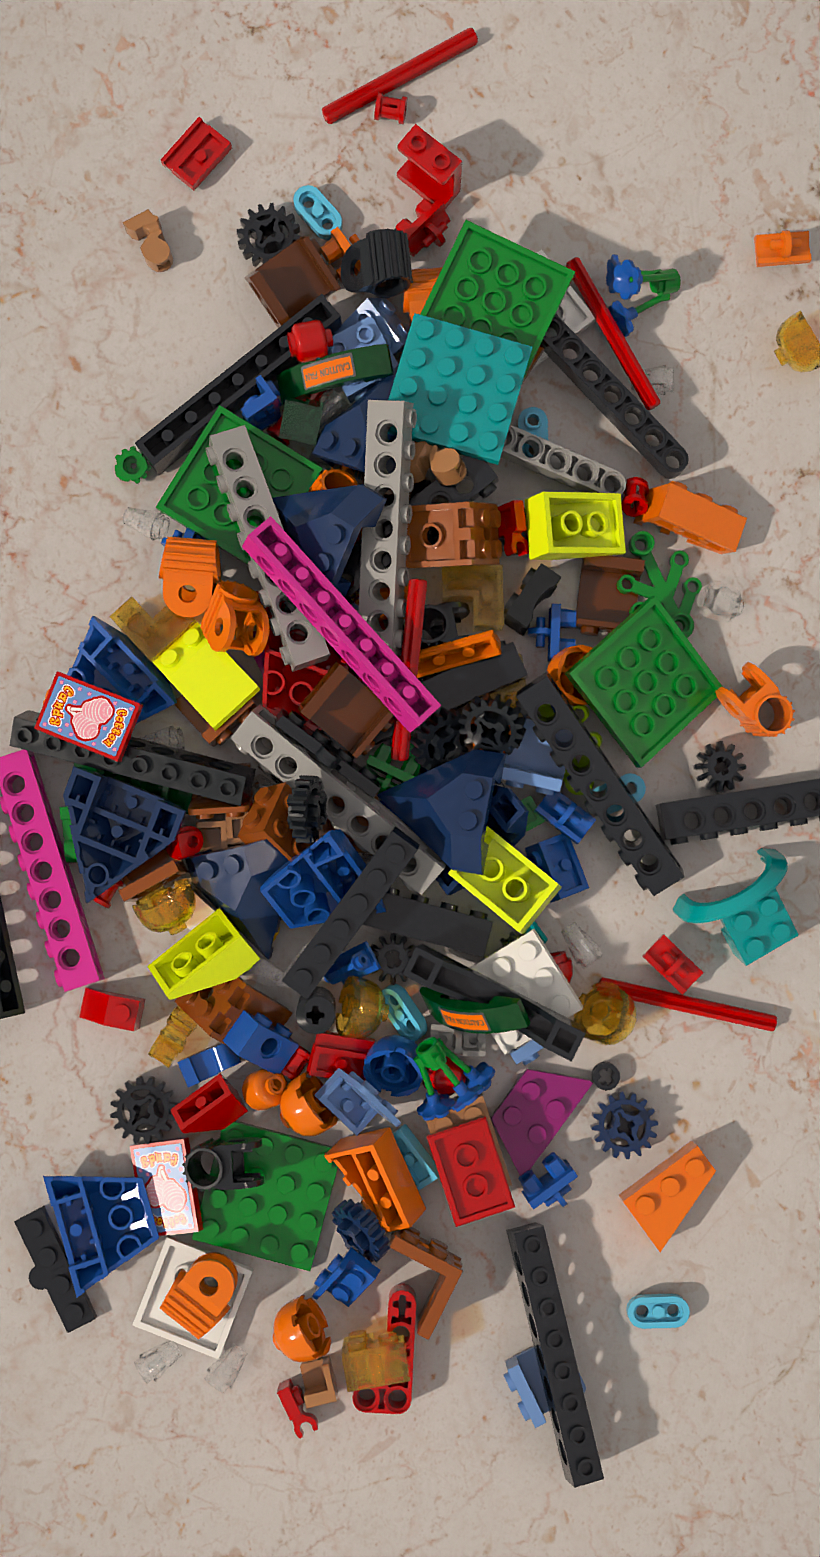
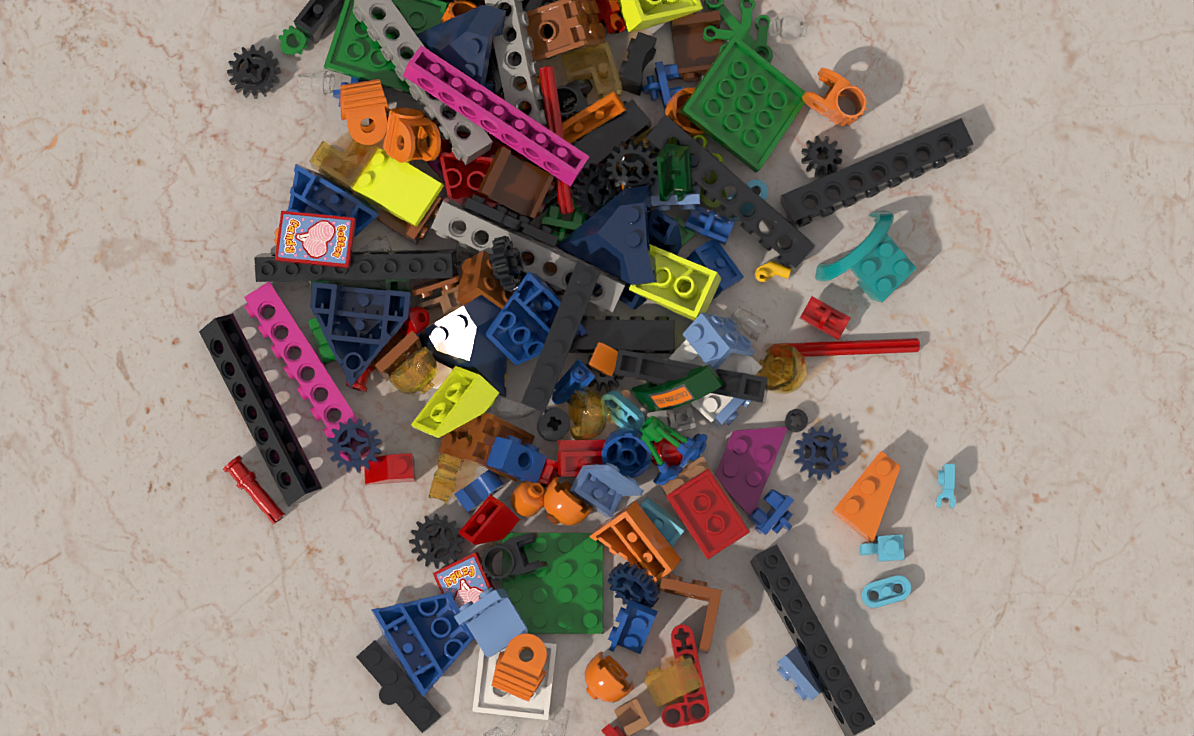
camera: 15 degrees left, 5 degrees down
(63, 491) = (245, 76): none -> black gear
(75, 963) = (352, 434): none -> dark blue gear
(182, 1230) = (492, 620): none -> medium blue bracket
(397, 948) = (604, 359): none -> orange slope
(537, 963) = (716, 339): none -> medium blue bracket
(539, 748) = (674, 172): none -> dark green hinge
(623, 886) = (770, 270): none -> yellow arm
(674, 1258) = (887, 547): none -> medium azure plate
(766, 1196) = (946, 478): none -> medium azure plate

